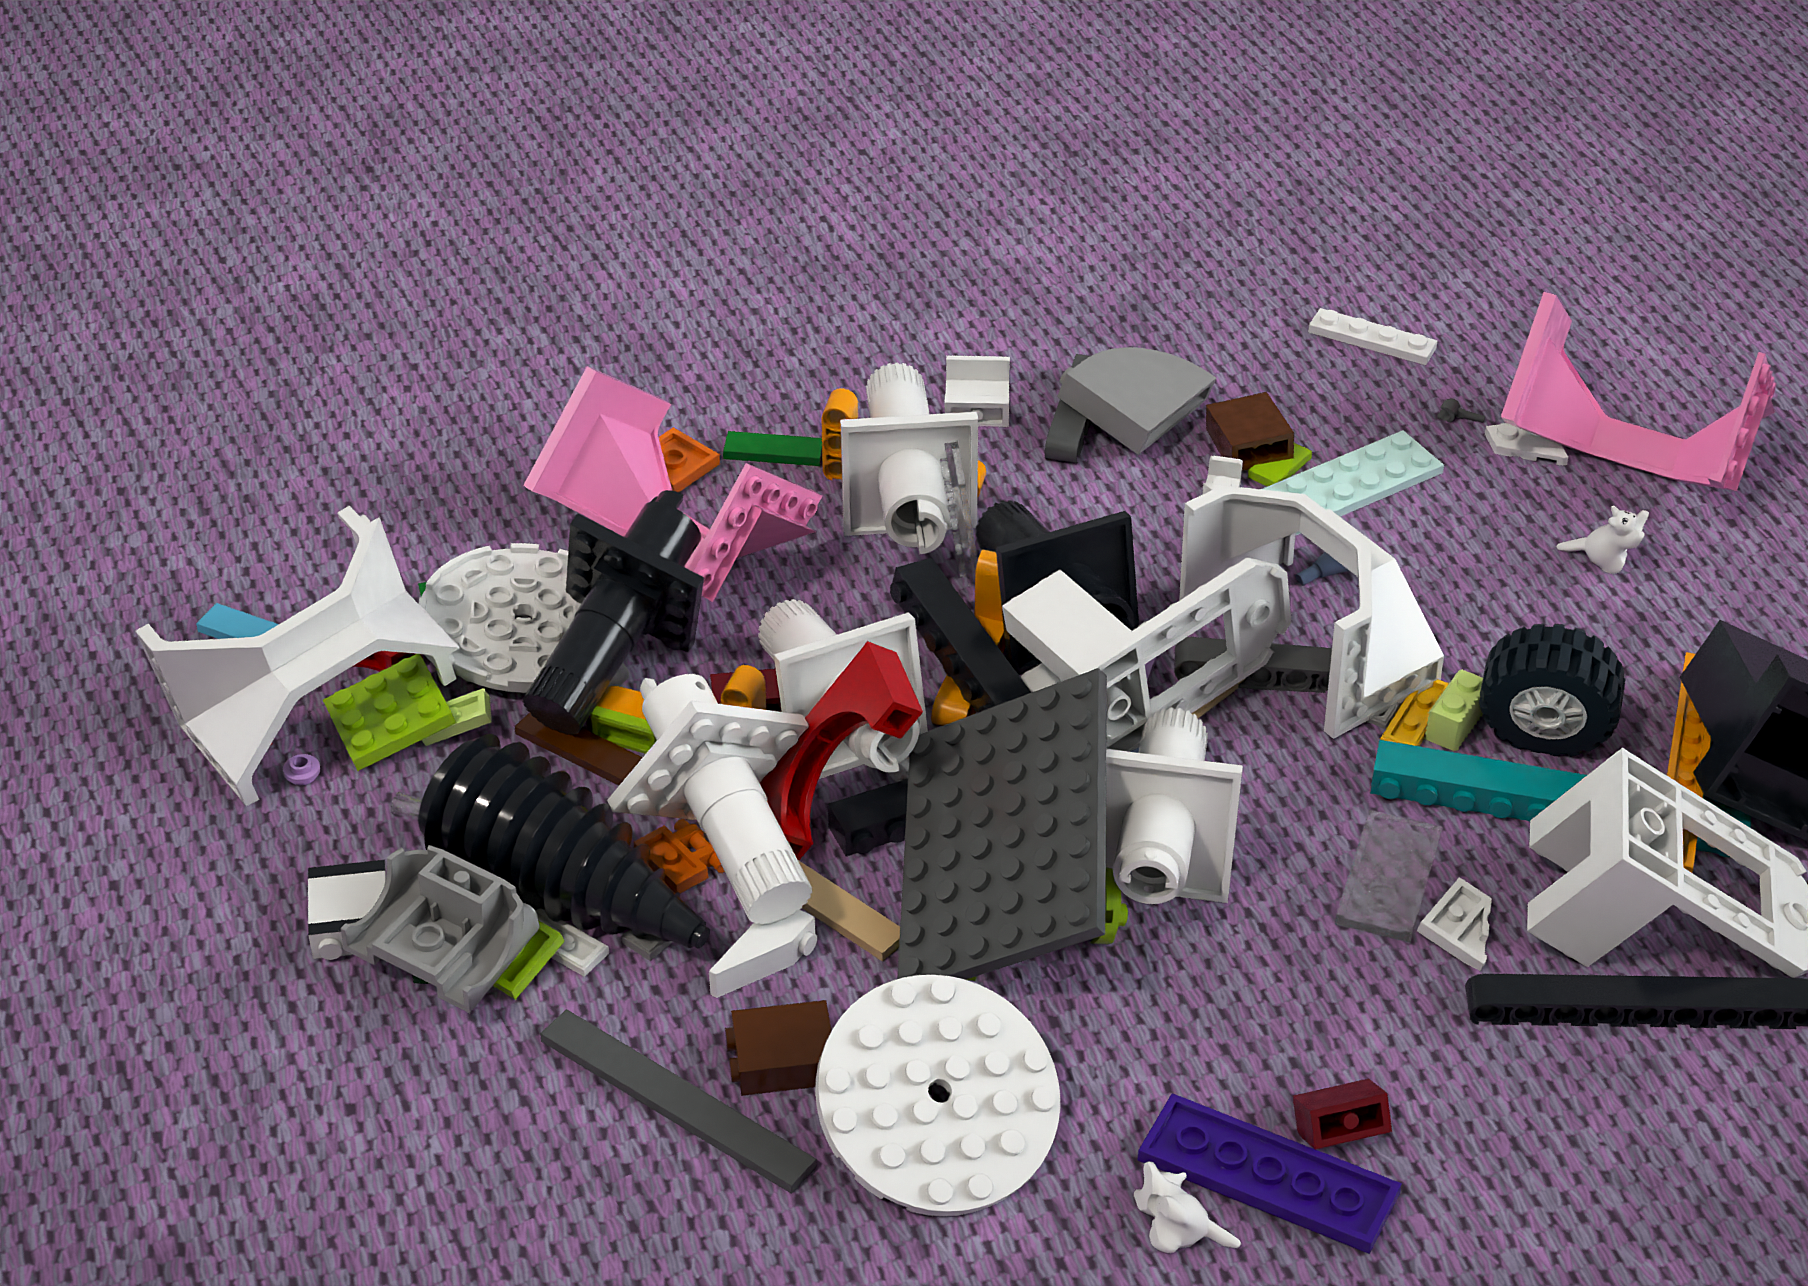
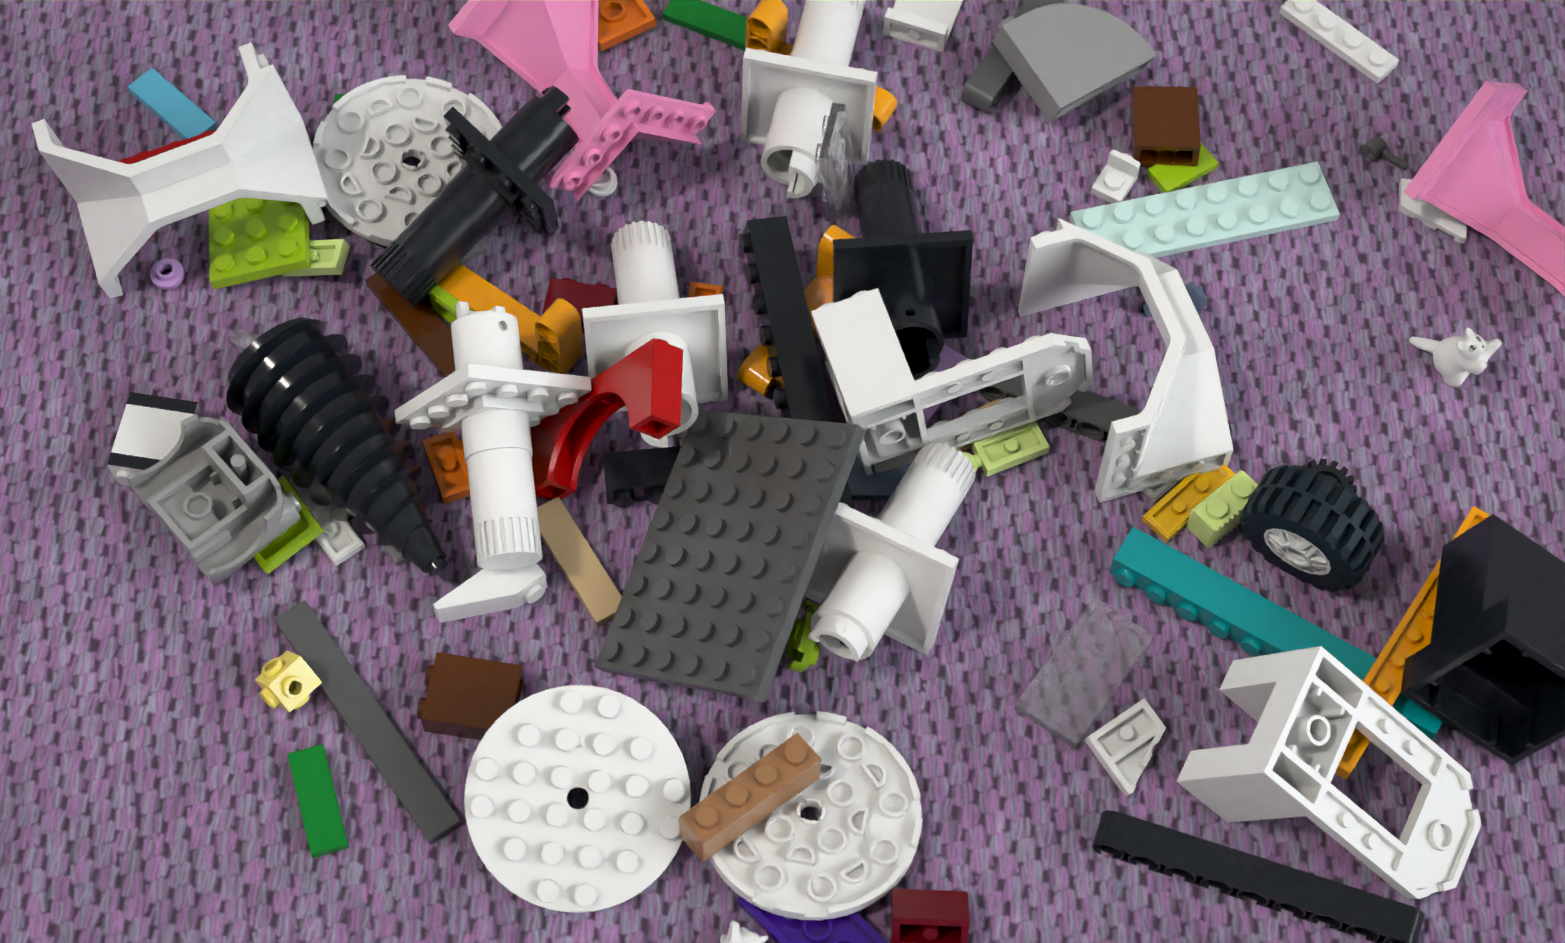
camera: 15 degrees right, 20 degrees up
(581, 1079) = (287, 682): none -> light yellow brick
(655, 1184) = (318, 801): none -> green tile
(726, 596) = (604, 184): none -> white plate
(1115, 1047) = (749, 797): none -> medium nougat brick
(1230, 711) = (1008, 449): none -> yellowish green plate
(1230, 1085) = (855, 847): none -> white plate

